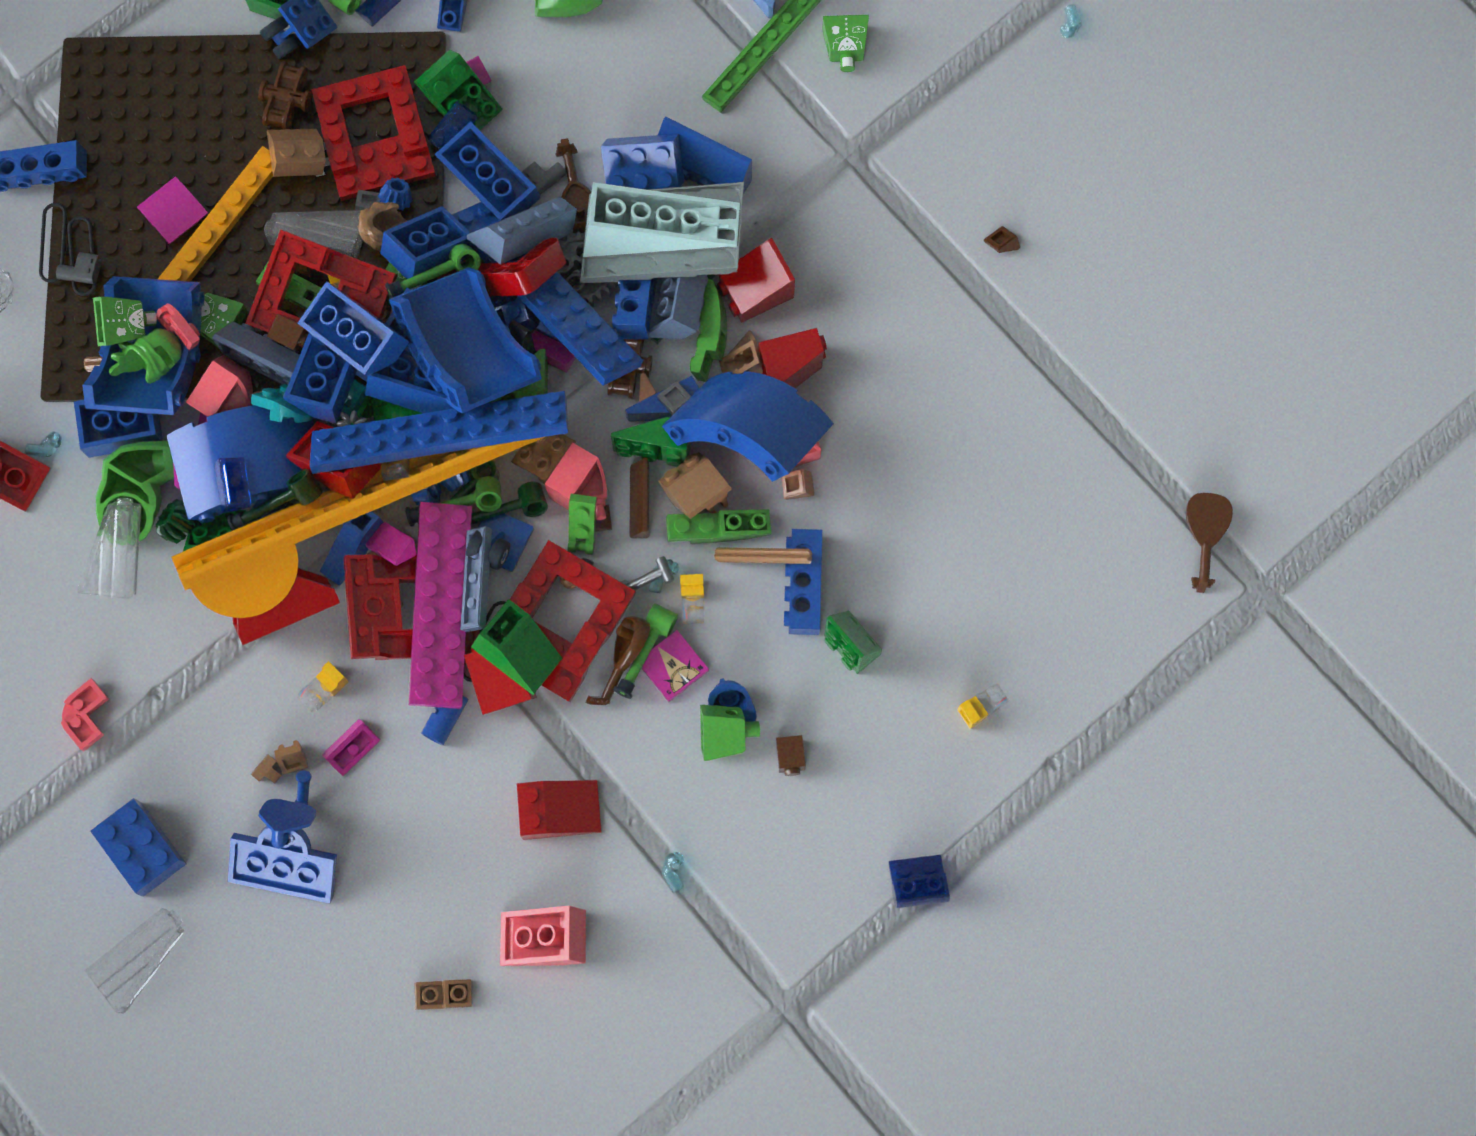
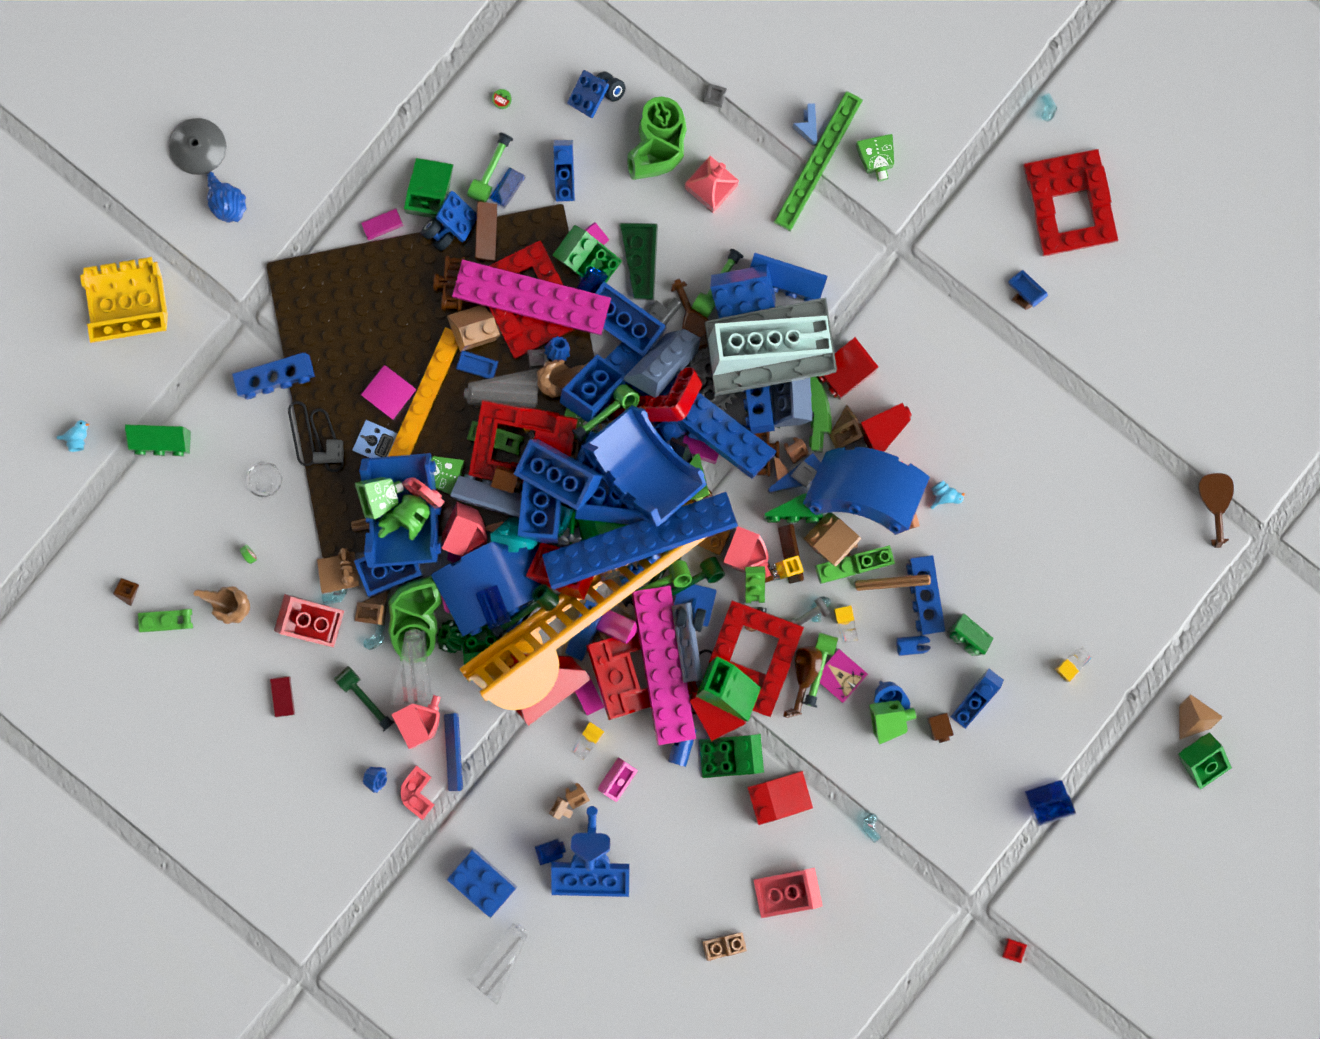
camera: 10 degrees left, 10 degrees up
(31, 554) = (347, 680): none -> dark green piece
(33, 685) = (375, 778): none -> blue piece
(53, 417) = (338, 572): none -> medium nougat hinge
(80, 512) = (377, 639): none -> clear light blue arm
(84, 475) = (373, 609): none -> medium nougat slope
(104, 622) = (418, 722): none -> coral piece
(141, 263) = (374, 440): none -> sticker
(146, 671) = (453, 752): none -> blue slope
(217, 18) = (382, 224): none -> dark pink slope
(236, 819) = (550, 851): none -> clear blue slope
(291, 197) = (477, 365): none -> blue tile
(335, 629) = (589, 698): none -> dark pink slope
(340, 44) = (486, 231): none -> reddish brown slope
(376, 124) = (531, 297): none -> dark pink plate
(507, 742) = (731, 756): none -> green slope
(528, 103) = (641, 254): none -> dark green wing
(593, 172) = (705, 303): none -> bright green piece
(627, 511) = (786, 568): none -> yellow leg
(632, 37) = (711, 184): none -> coral piece
(672, 370) = (796, 450): none -> nougat tile
(772, 641) = (910, 646): none -> blue piece
(835, 1075) = (1014, 950): none -> red tile
(847, 726) = (977, 698): none -> blue slope
(854, 460) = (945, 494): none -> medium azure animal
(1006, 227) = (1028, 288): none -> blue tile
(1077, 106) = (1068, 176): none -> red piece
(1135, 805) = (1195, 717): none -> medium nougat slope
(1138, 864) = (1205, 760): none -> green slope

